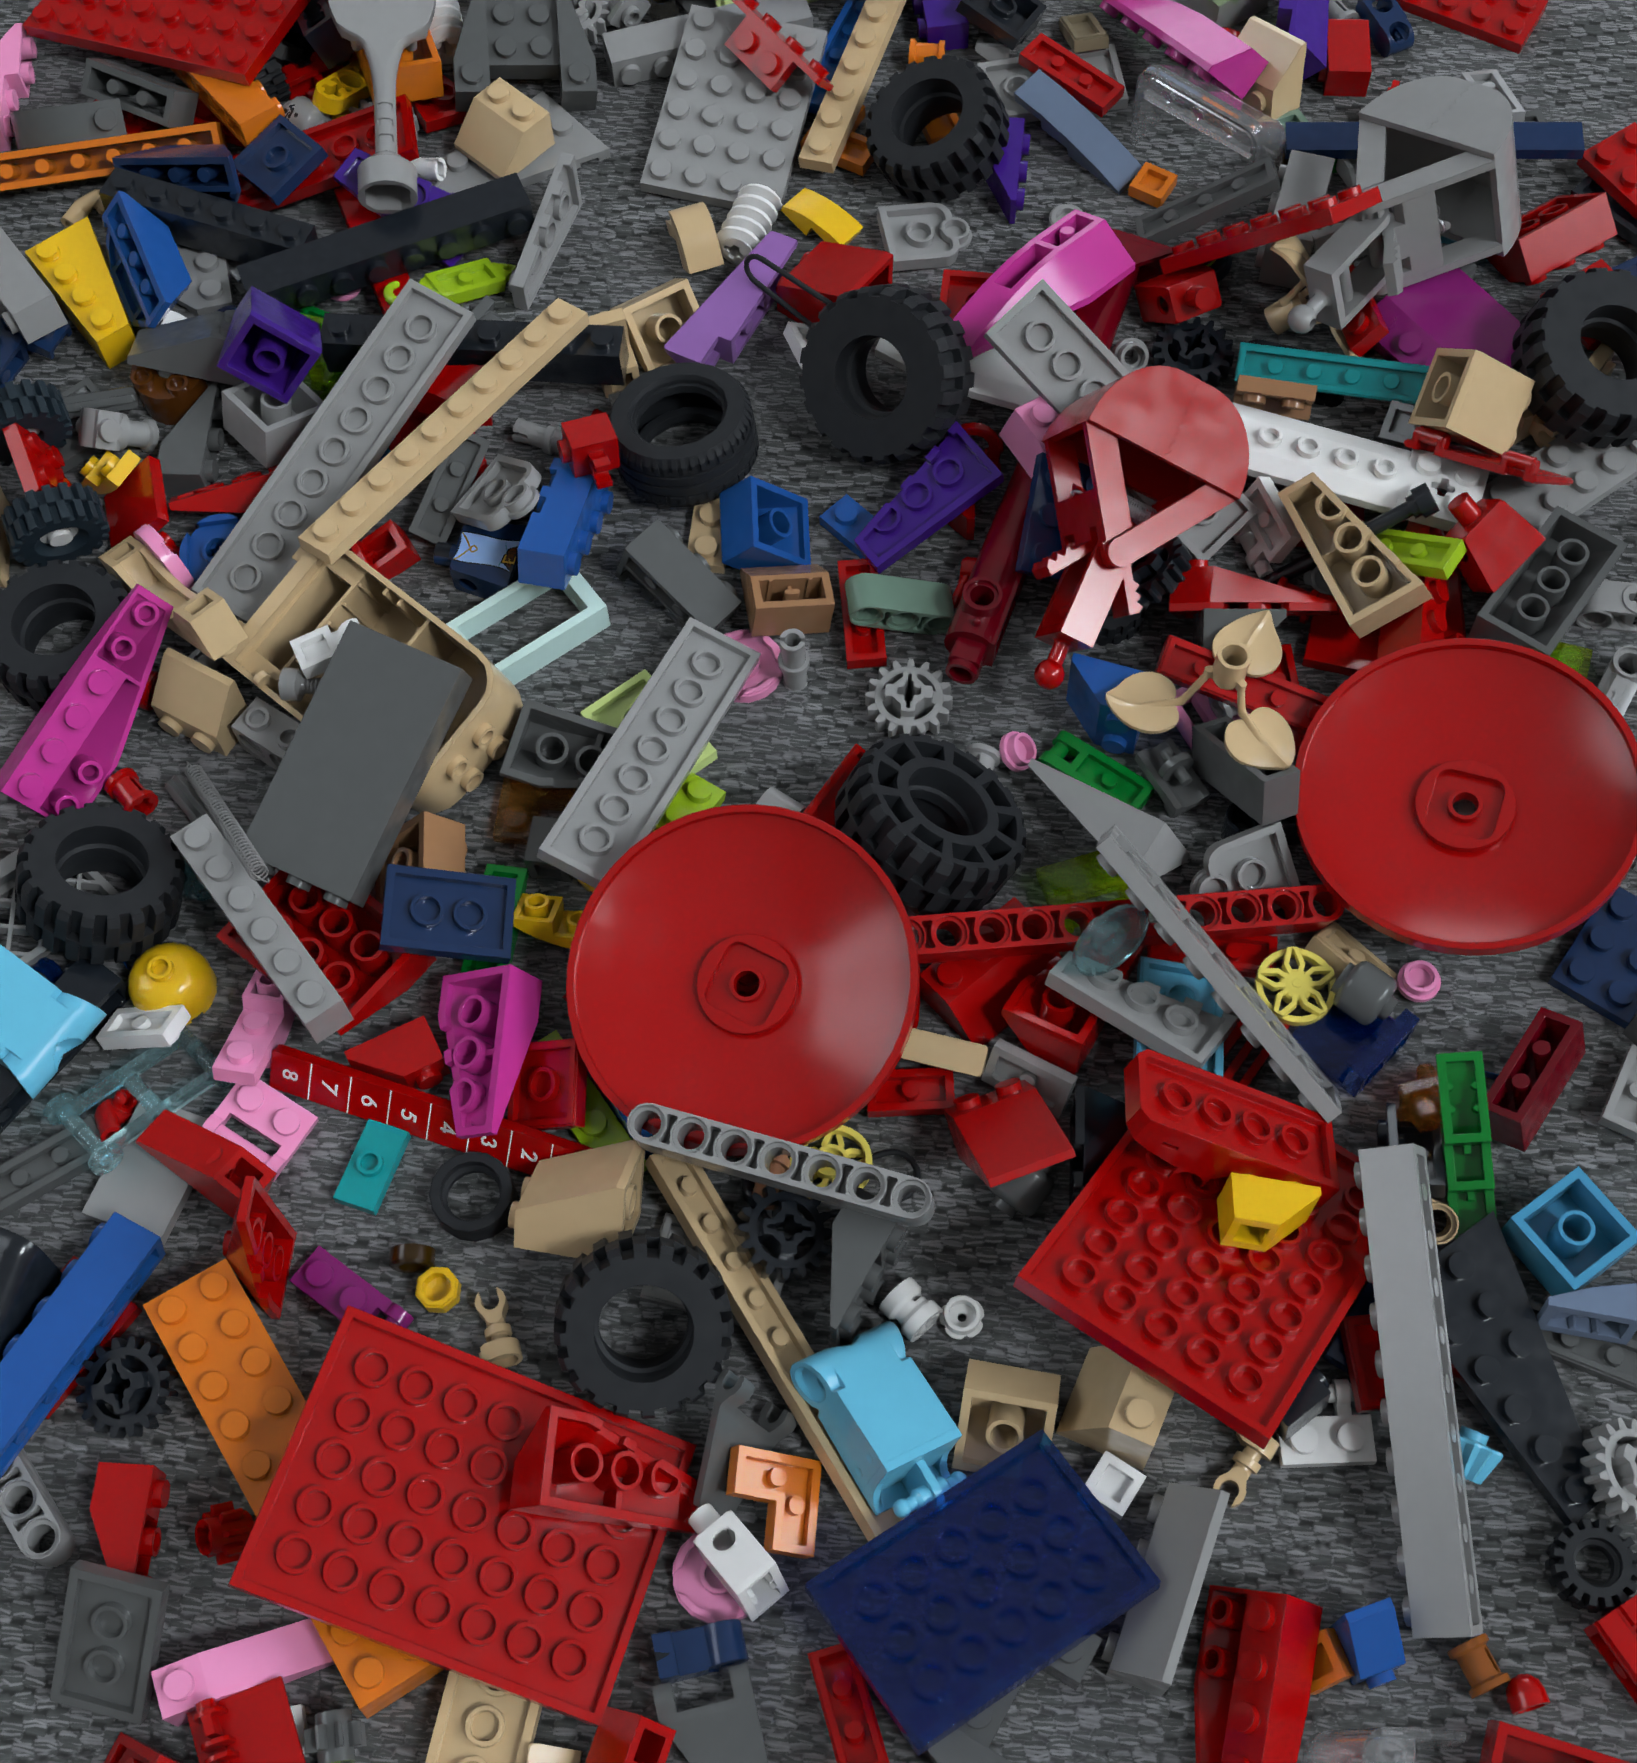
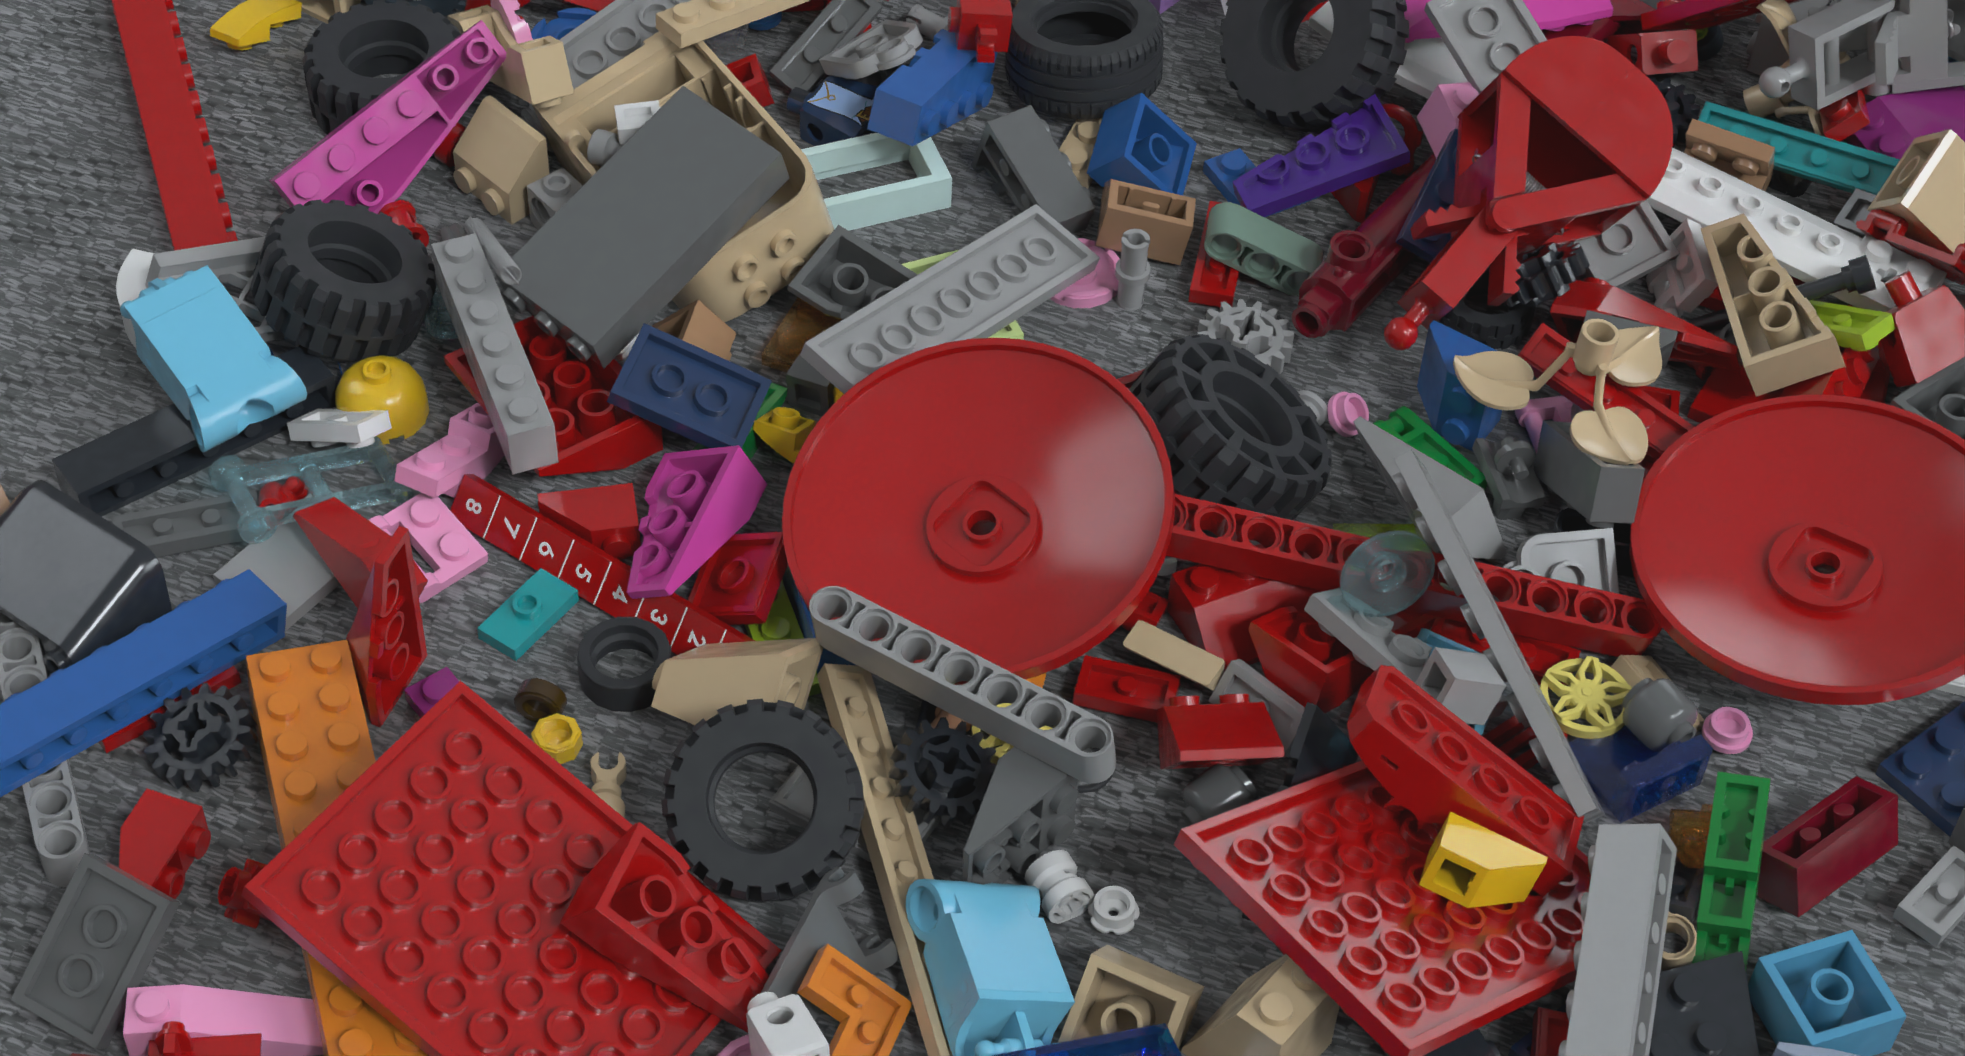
camera: 10 degrees right, 15 degrees down
(1202, 1036) = (1462, 683): none -> light grey brick

